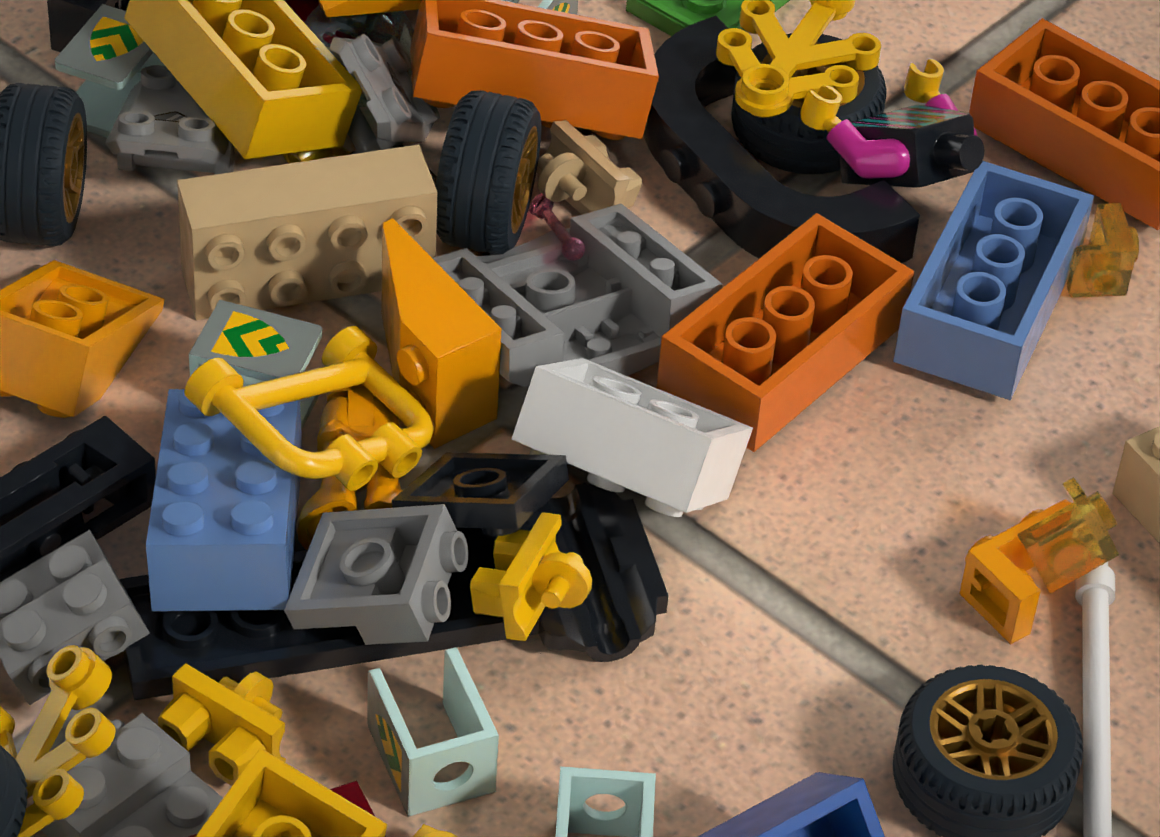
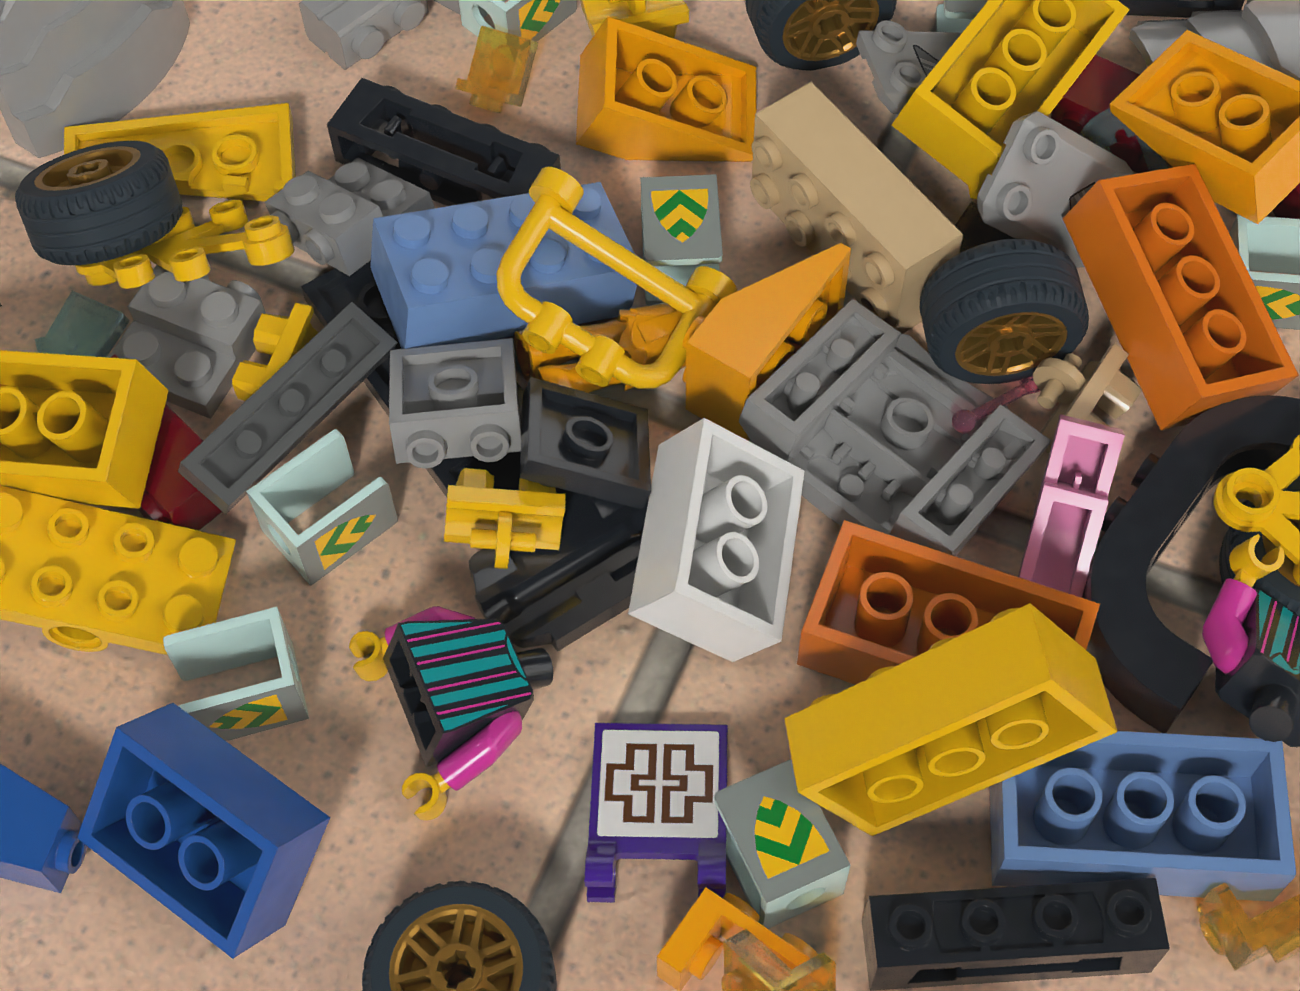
camera: 75 degrees right, 15 degrees up
(320, 703) = (287, 408): none -> dark grey plate
(691, 212) = (1071, 504): none -> bright pink slope
(694, 673) = (458, 691): none -> torso
(859, 586) = (656, 801): none -> flag
(906, 318) = (949, 722): none -> yellow brick
(936, 502) = (780, 845): none -> piece
(1066, 391) = (1013, 934): none -> black brick

